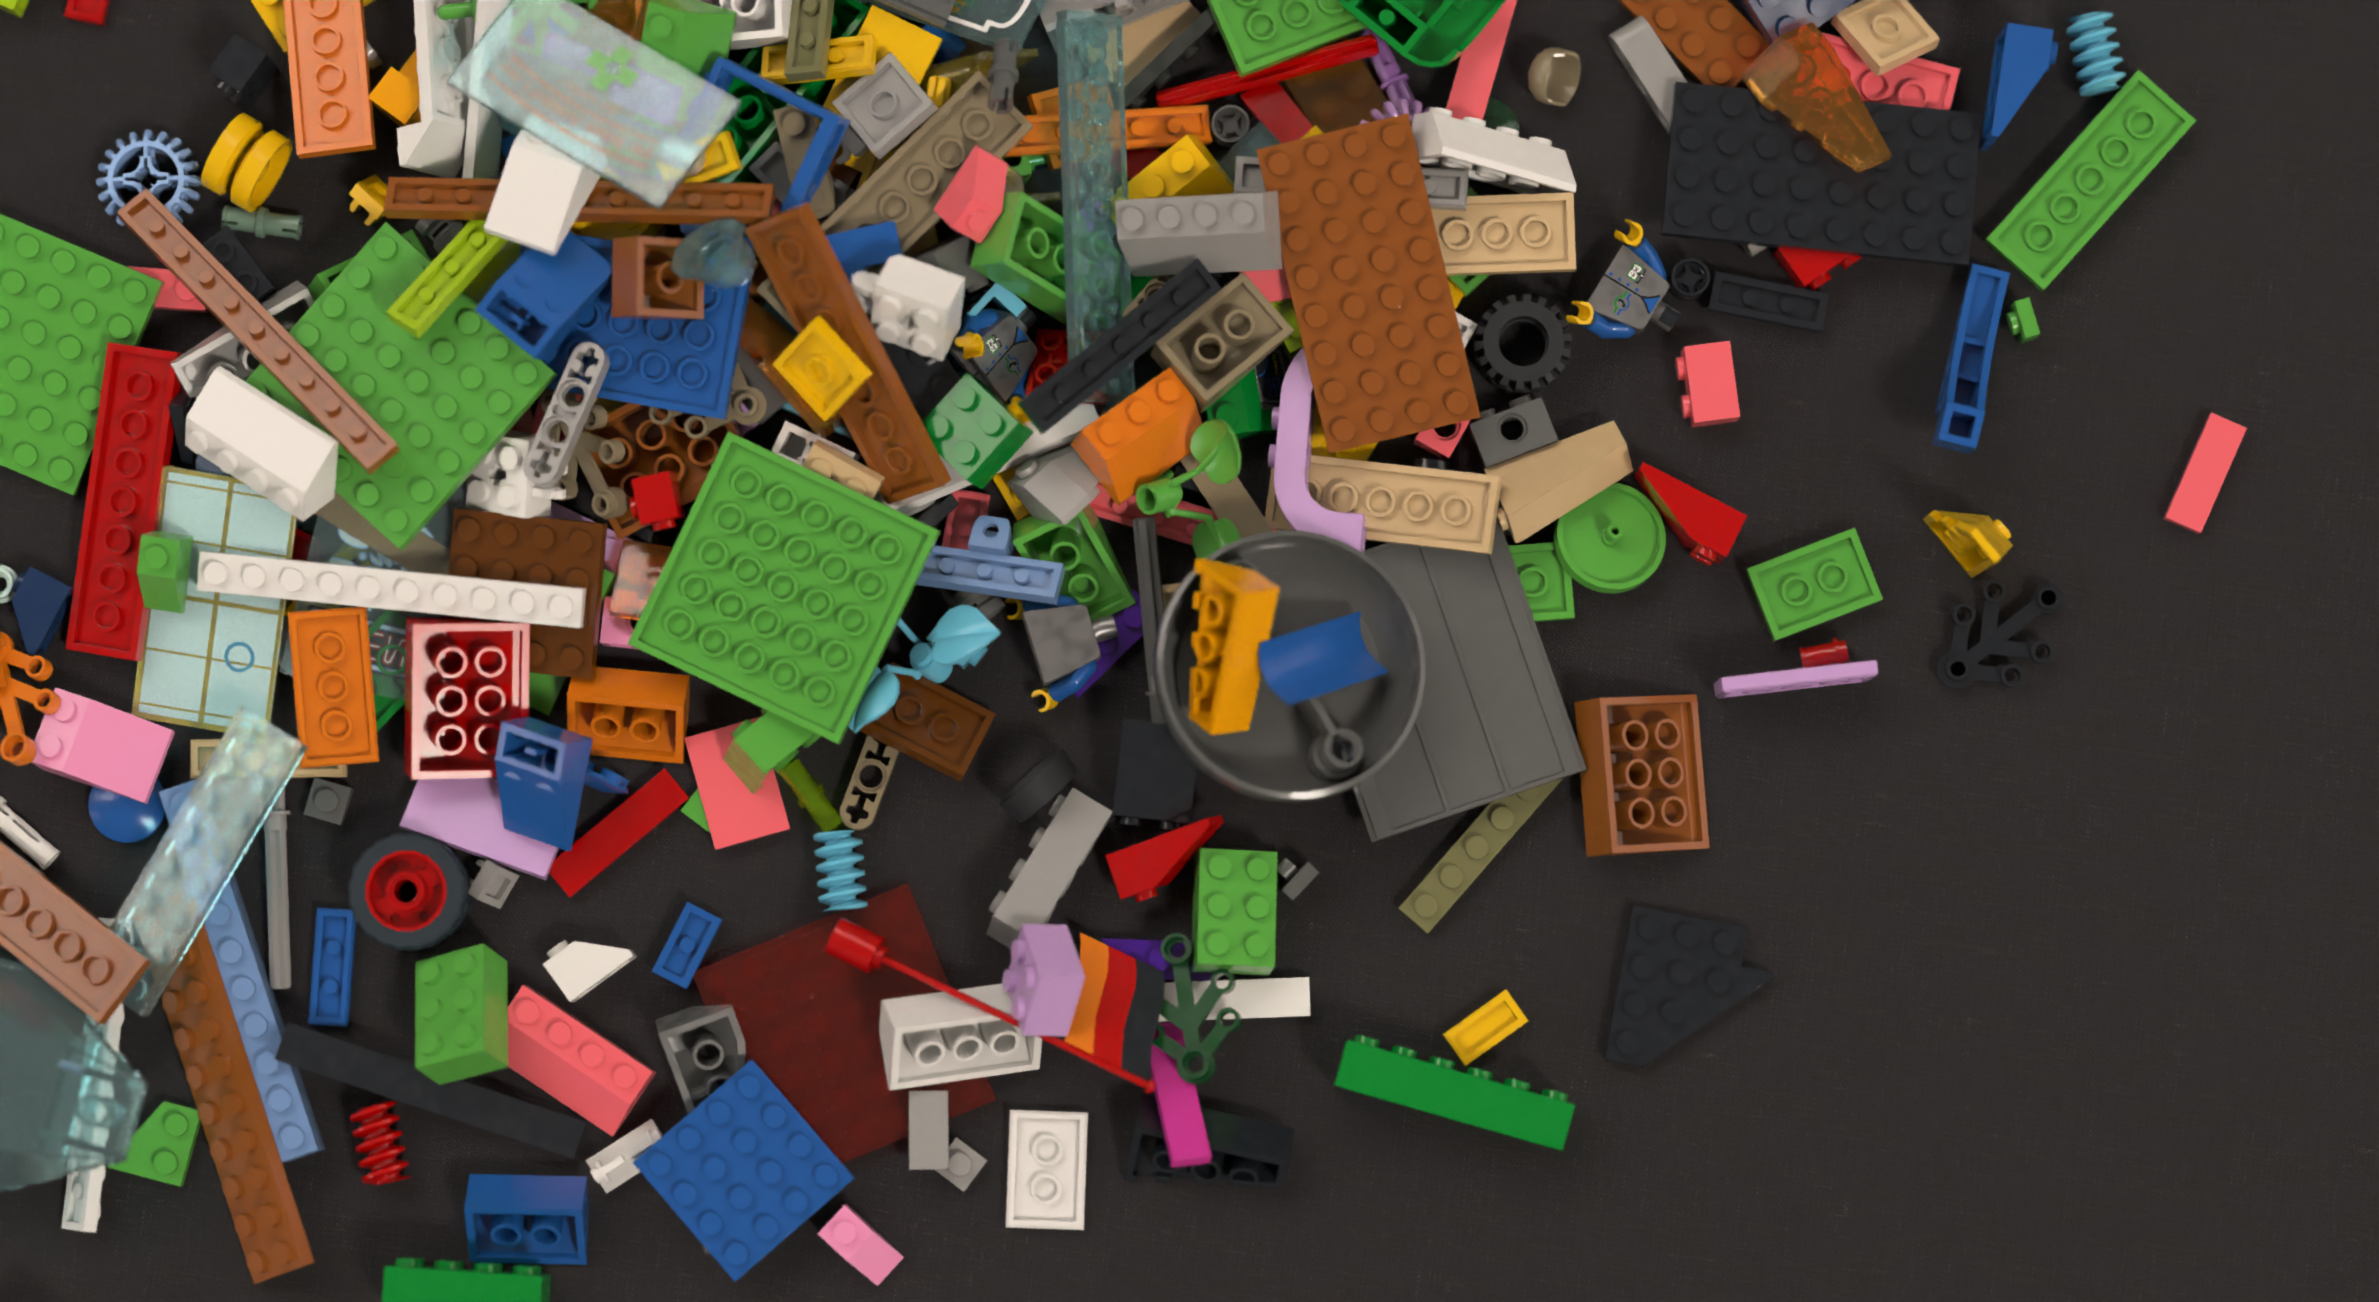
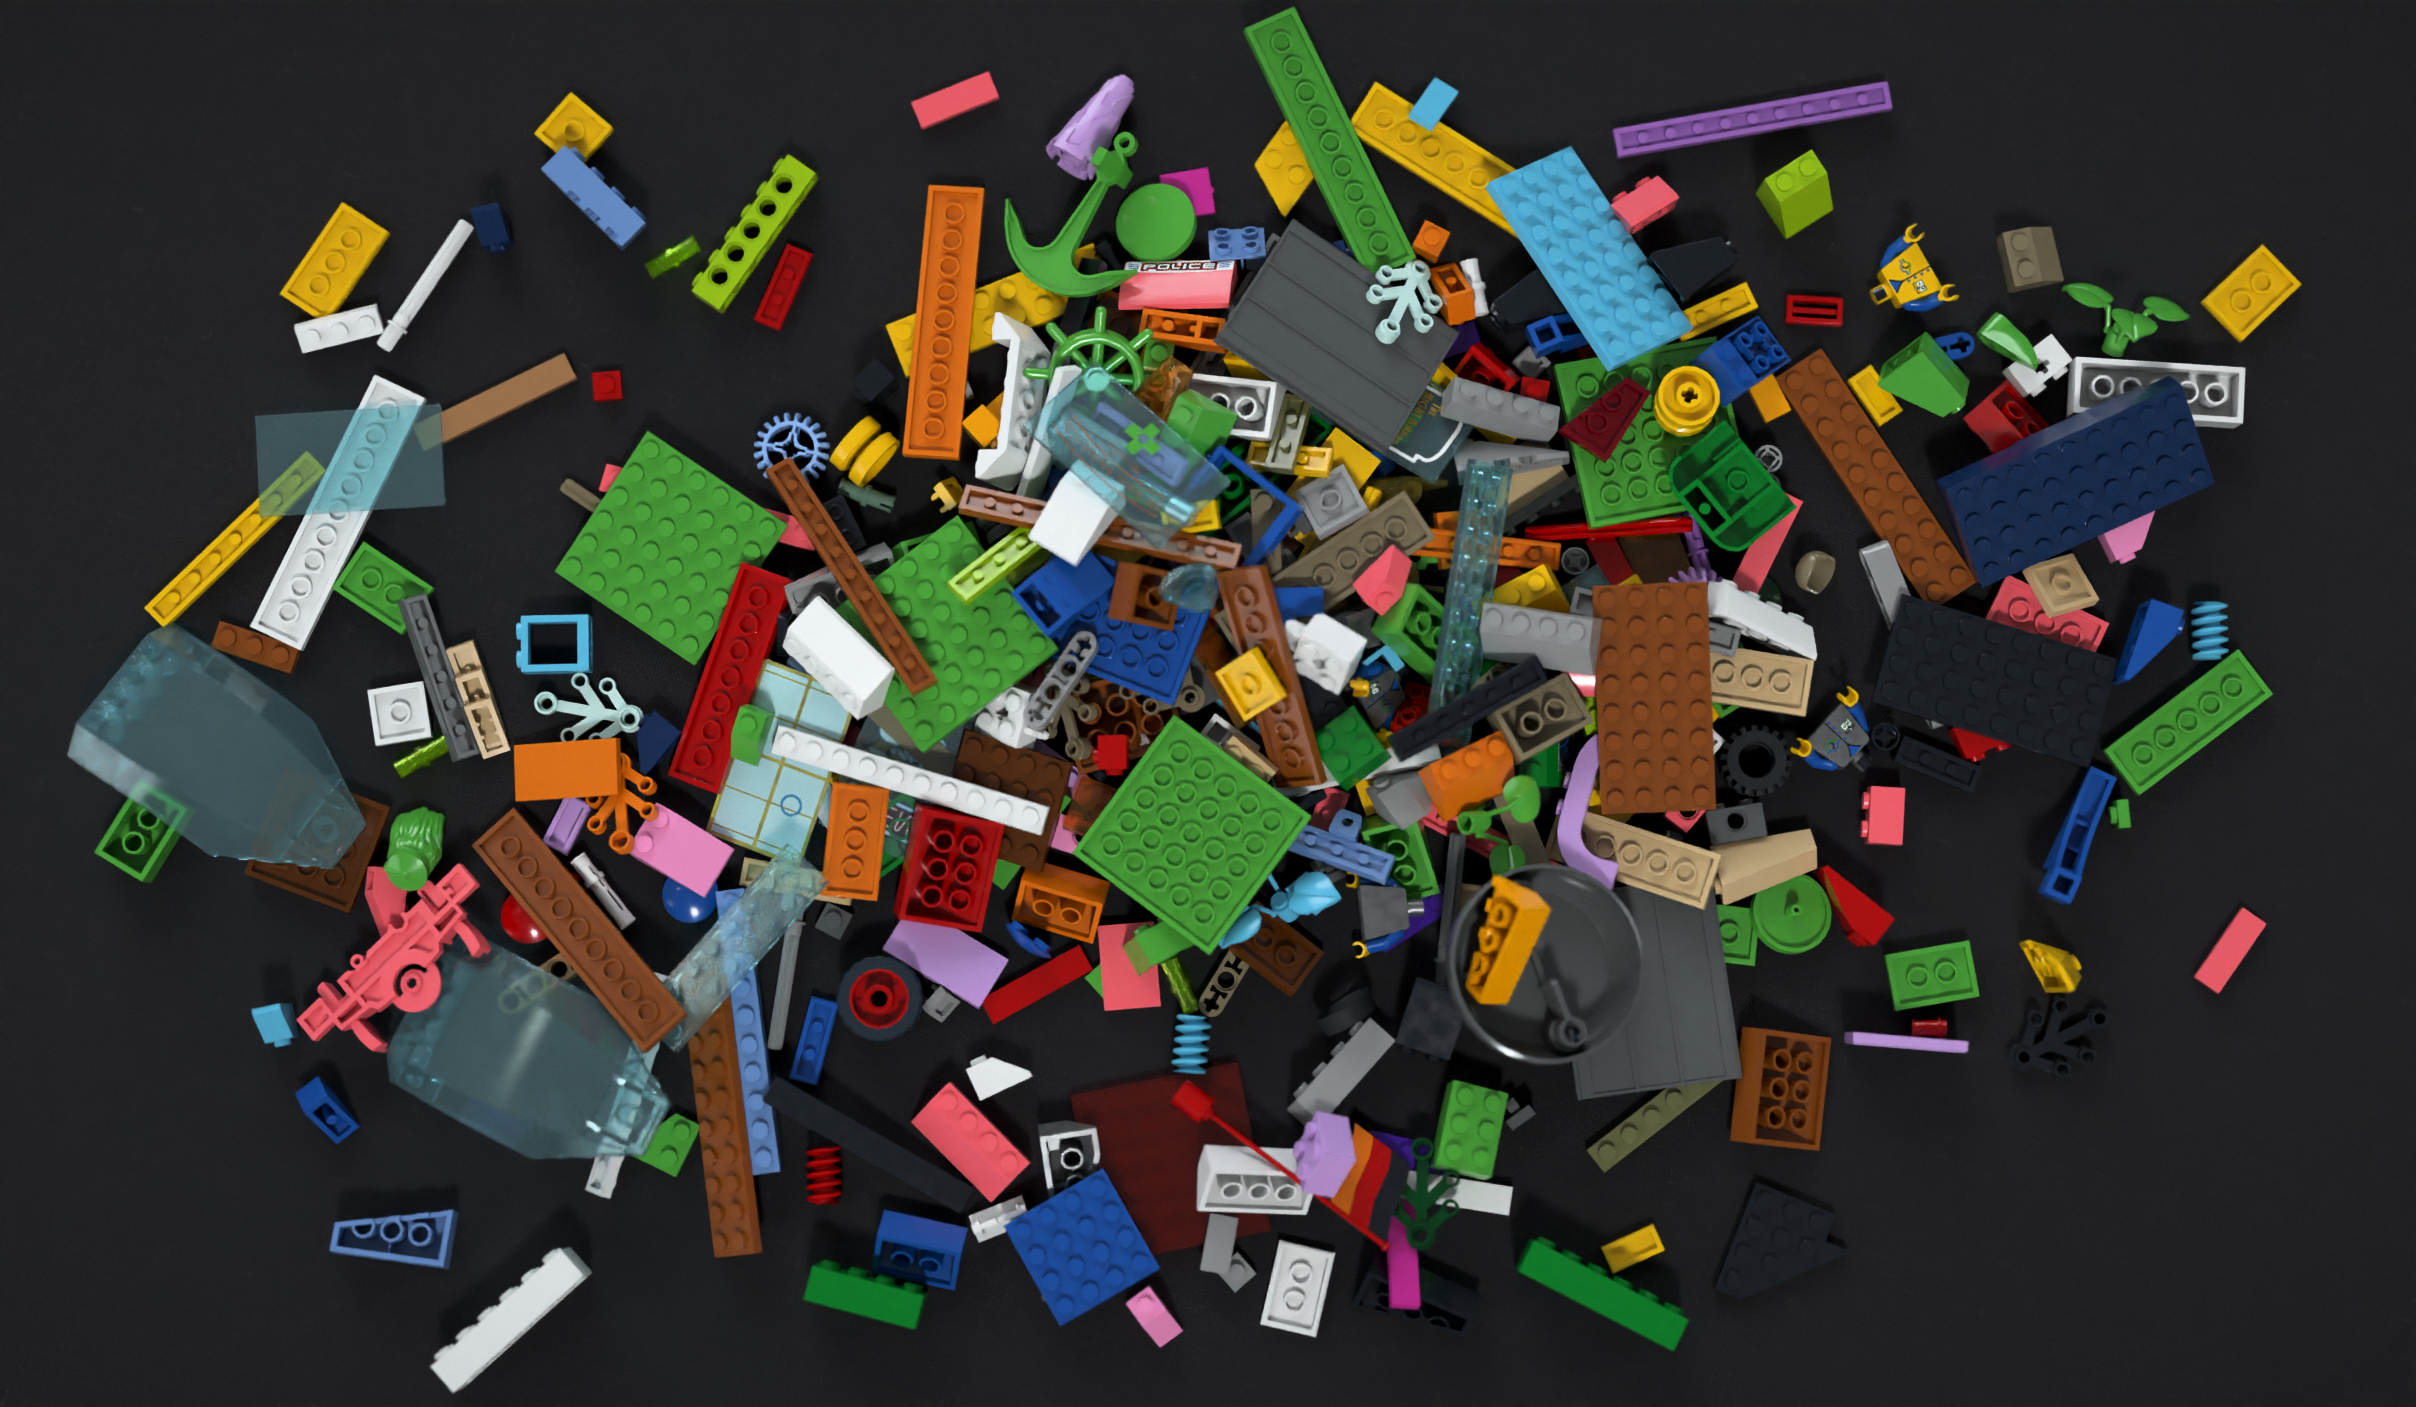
camera: 15 degrees right, 0 degrees up
(461, 1014) = (901, 1095): bright green brick -> none
(541, 779) = (991, 938): blue slope -> none
(687, 945) = (1071, 1075): blue plate -> none
(1003, 75) = (1421, 498): dark grey pin -> none
(1158, 860) = (1418, 1083): red slope -> none
(1317, 659) = (1566, 964): blue sticker -> none
(1812, 88) = (2001, 618): clear orange wedge -> none

